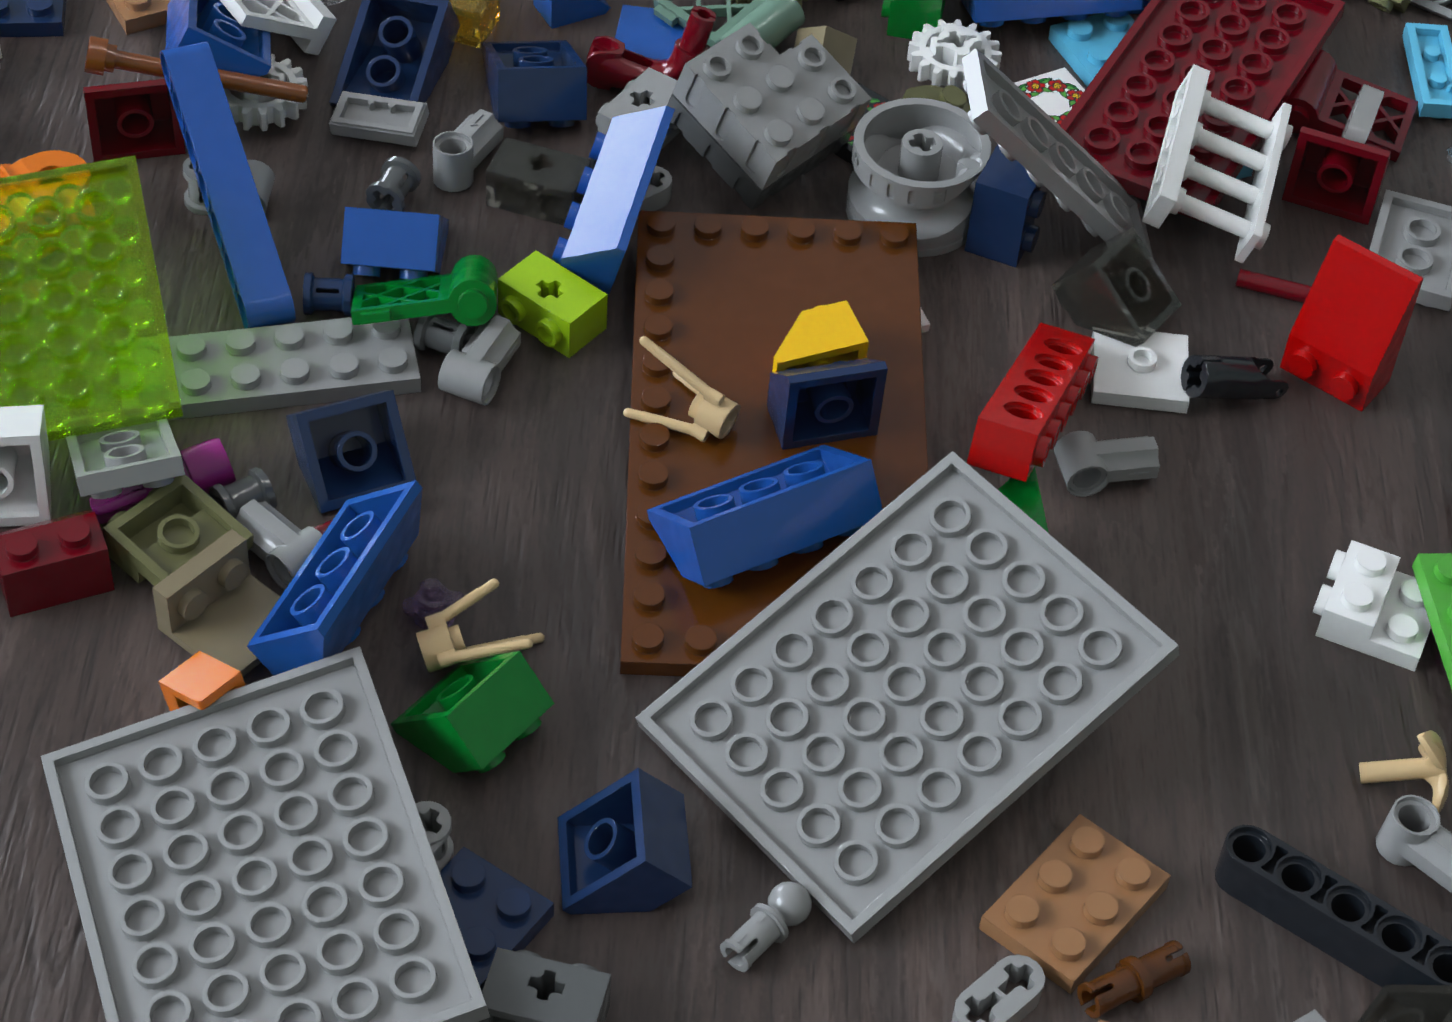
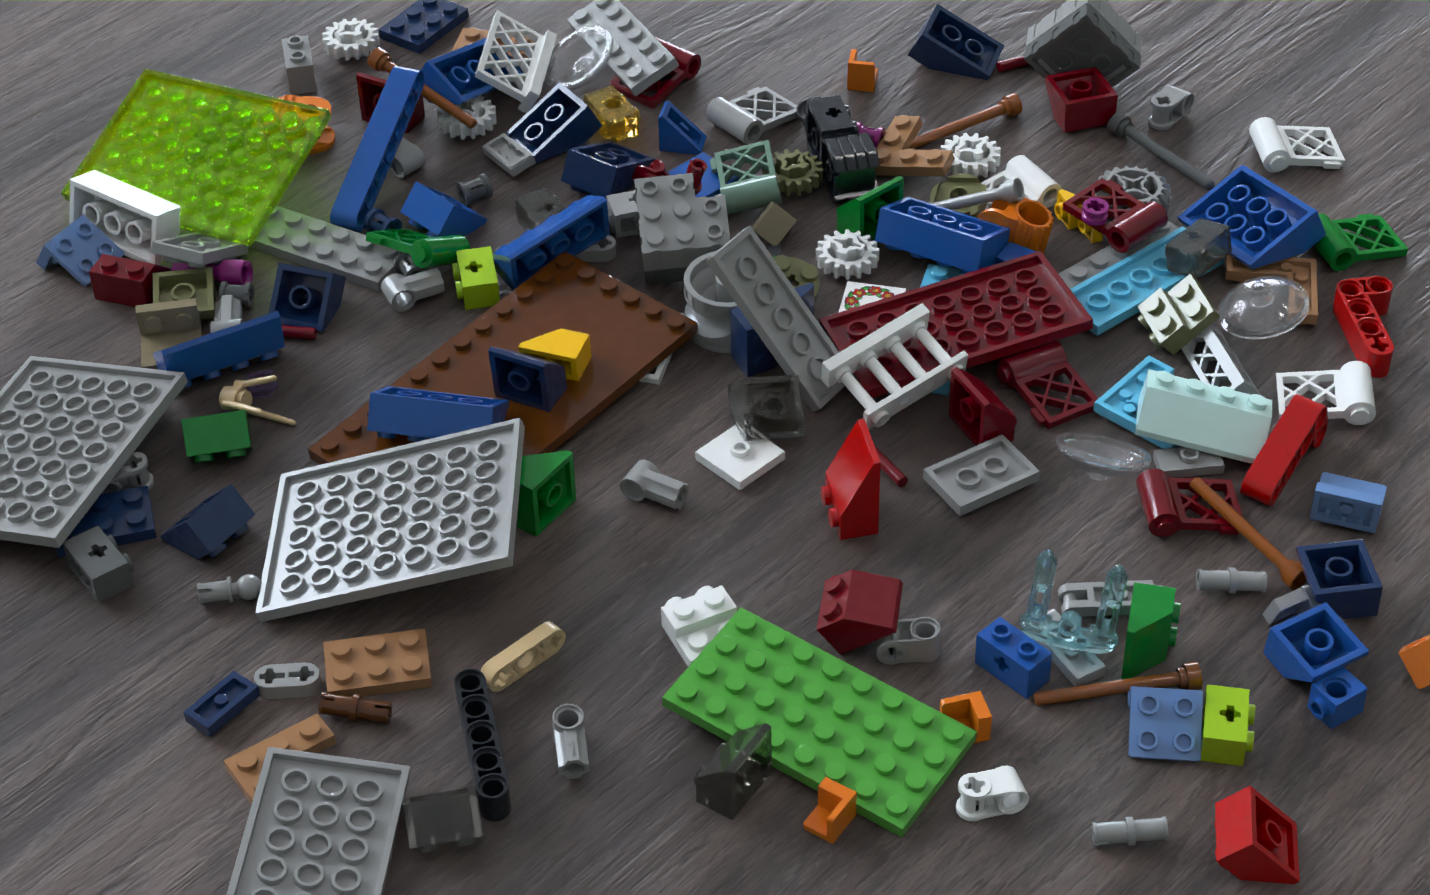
camera: 45 degrees right, 5 degrees down
(199, 682) = (117, 355): orange panel -> none
(462, 150) = (518, 184): light grey piece -> none
(710, 409) = (473, 357): tan plant -> none
(1033, 403) = (622, 426): red brick -> none
(1230, 378) = (776, 482): black piece -> none
(1239, 769) = (510, 665): none -> tan beam
(1363, 114) = (1030, 390): light grey beam -> none
(1430, 767) = (616, 701): tan plant -> none

